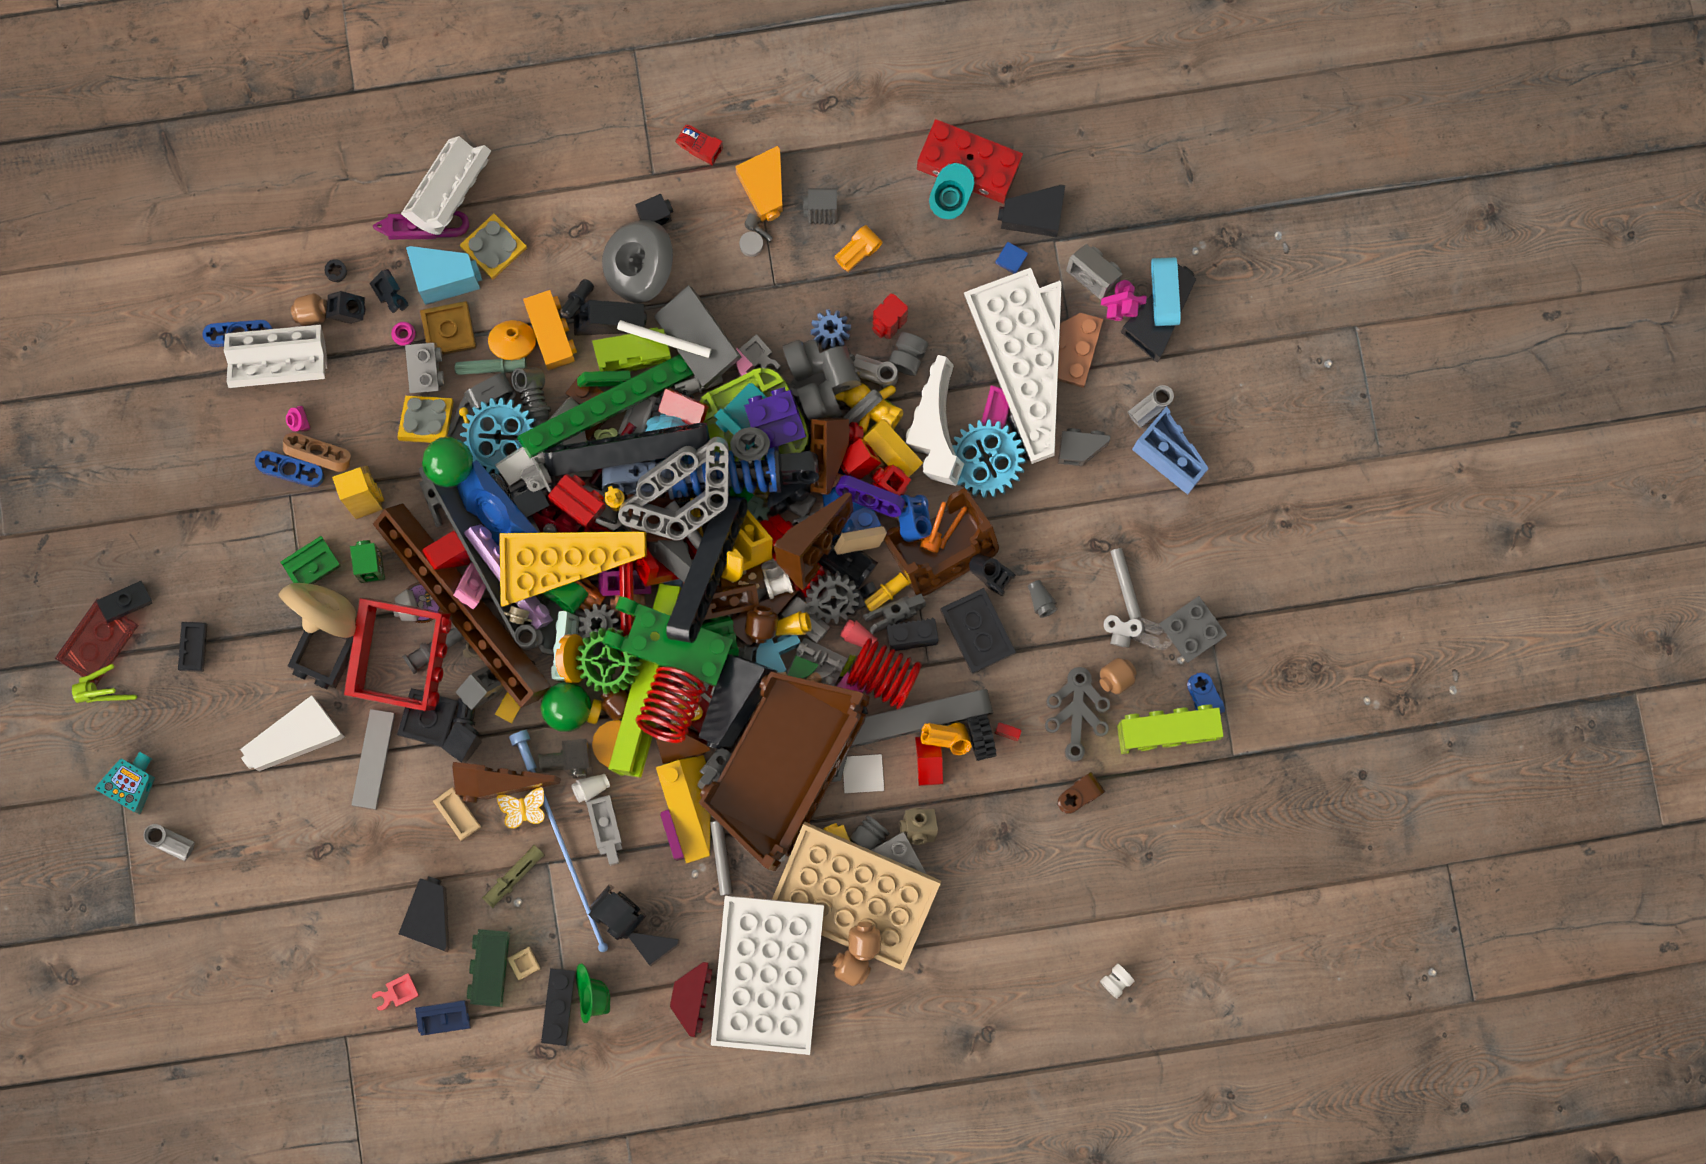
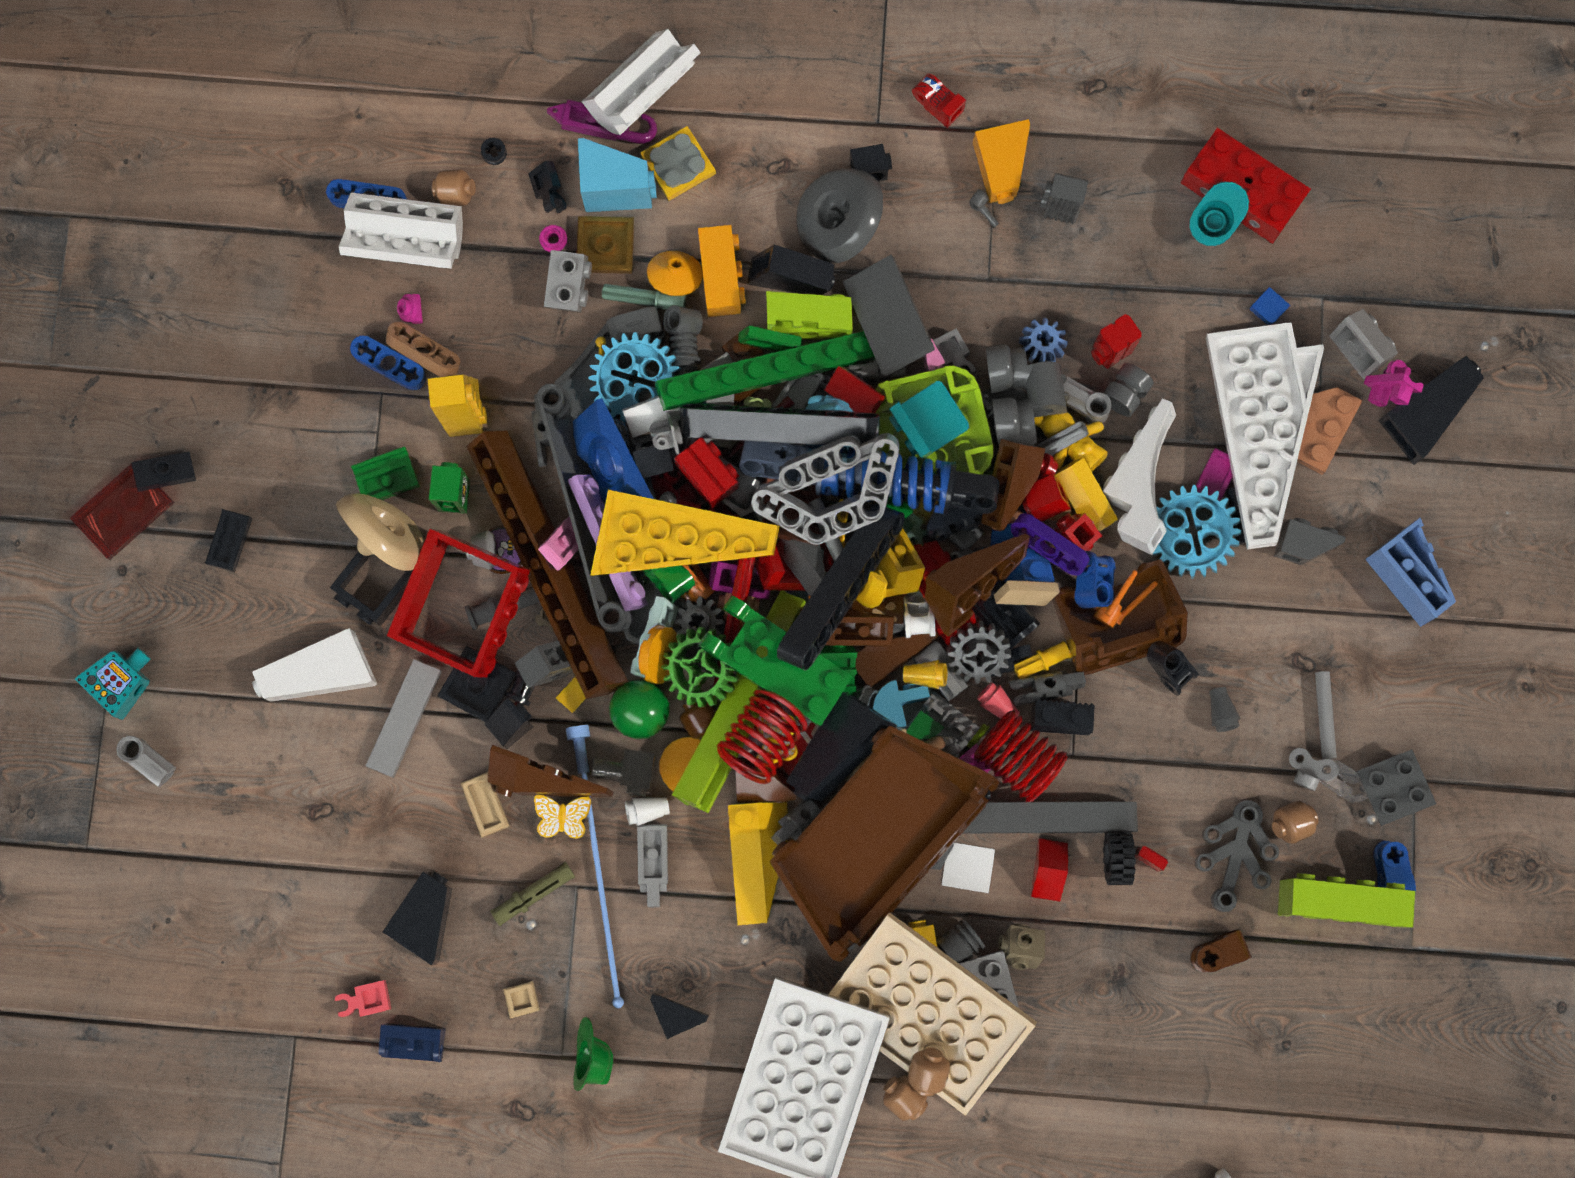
camera: 15 degrees right, 0 degrees up
(87, 692) = (97, 565): lime plant -> none
(337, 307) = (484, 193): black brick -> none
(425, 418) = (555, 341): light grey piece -> none
(447, 461) = (567, 392): green piece -> none
(447, 552) = (543, 498): red slope -> none
(488, 968) = (478, 997): clear green brick -> none
(518, 615) = (608, 590): dark tan plate -> none
(558, 1007) = (549, 1061): black plate -> none
(576, 299) = (759, 242): black axle -> none
(595, 711) = (672, 722): yellow tile -> none
(614, 498) = (751, 478): yellow axle -> none
(616, 912) = (642, 967): black brick -> none
(664, 339) = (850, 308): white bar -> none
(672, 835) = (728, 889): magenta tile -> none
(689, 998) = (706, 1088): dark red slope -> none
(721, 858) = (780, 930): light grey piece -> none
(748, 436) = (924, 441): dark grey gear -> none
(751, 244) = (972, 225): light grey tile -> none
(761, 623) = (889, 665): reddish brown head -> none
(776, 417) = (959, 429): dark purple plate -> none
(863, 244) = (1100, 253): light orange piece -> none
(952, 736) = (1084, 849): light orange piece -> none
(977, 631) = (1140, 730): black plate -> none
(1034, 212) = (1308, 260): black slope -> none
(1150, 407) = (1398, 513): light grey piece -> none
(1165, 291) = (1447, 384): medium azure beam -> none

